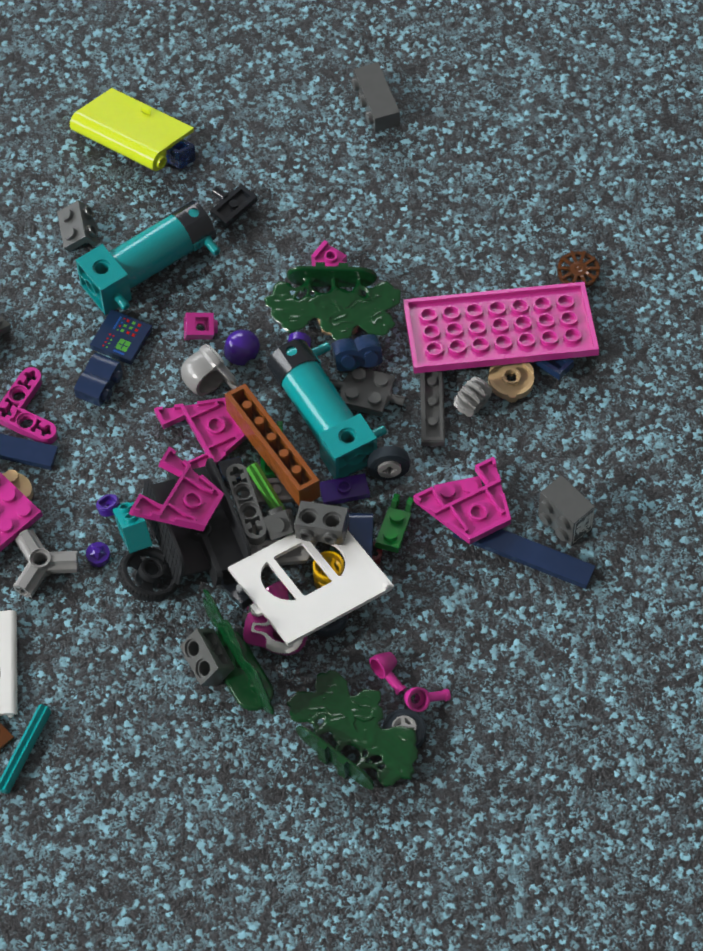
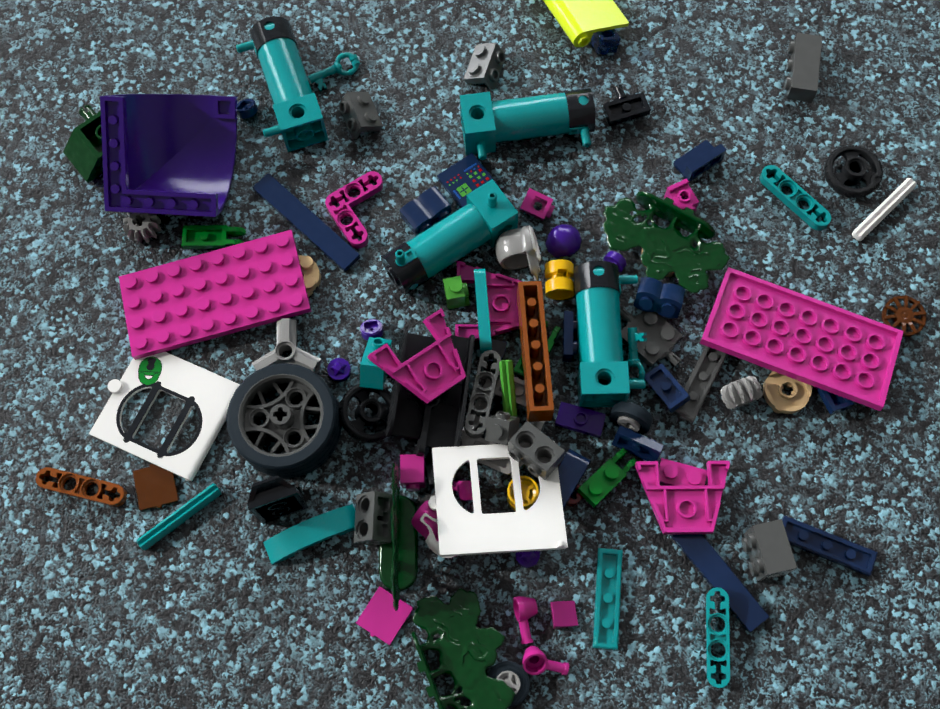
camera: 30 degrees right, 10 degrees up
(76, 615) = (284, 420): none -> wheel
(113, 678) = (275, 499): none -> black slope
(154, 701) = (310, 533): none -> teal slope
(157, 362) = (449, 240): none -> teal piece
(168, 434) = (455, 292): none -> bright green brick
(203, 436) = (482, 310): none -> teal beam
(223, 600) = (412, 472): none -> dark pink brick
(258, 379) = (559, 279): none -> yellow wheel
(263, 735) = (381, 618): none -> dark pink piece
(290, 418) = (569, 328): none -> dark blue plate
(326, 220) = (699, 160): none -> dark blue panel
(353, 395) = (633, 360): none -> teal piece
(361, 622) = (527, 559): none -> dark purple tile
(405, 483) = (637, 444): none -> dark blue plate
(406, 424) = (666, 388): none -> dark blue plate
(419, 653) = (563, 614): none -> dark pink slope
(428, 218) = (797, 195): none -> teal beam
(451, 622) = (607, 599): none -> teal tile
(466, 157) = (855, 163): none -> black wheel
(513, 188) = (883, 209): none -> white axle
(558, 604) = (721, 637): none -> teal beam
(619, 486) = (829, 546): none -> dark blue tile

